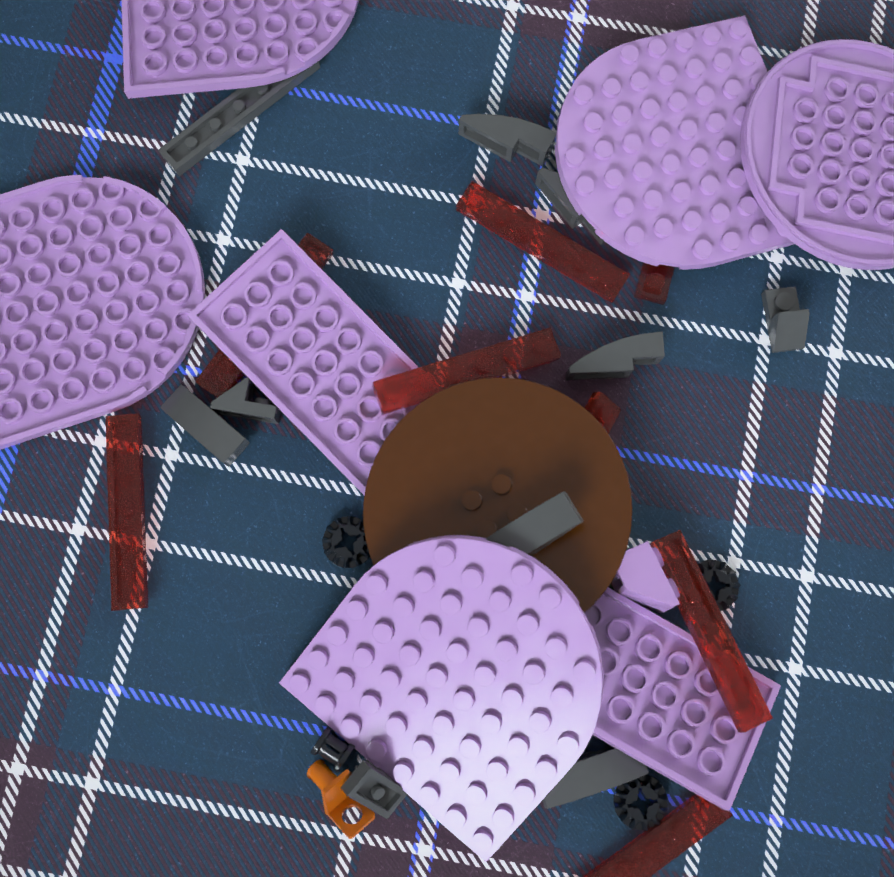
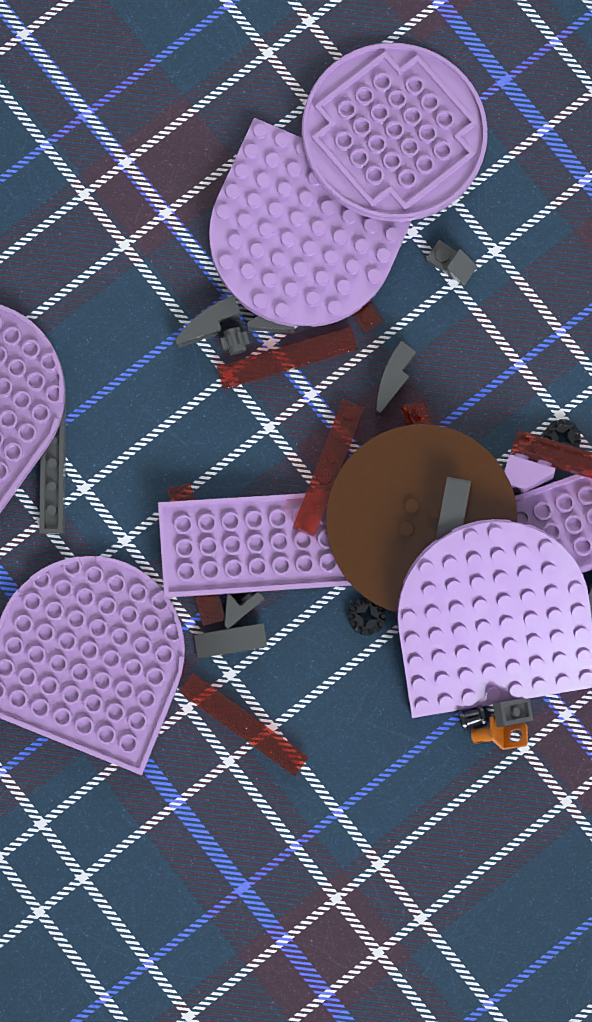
camera: 45 degrees left, 5 degrees up
(512, 175) = (234, 341): none -> dark grey gear

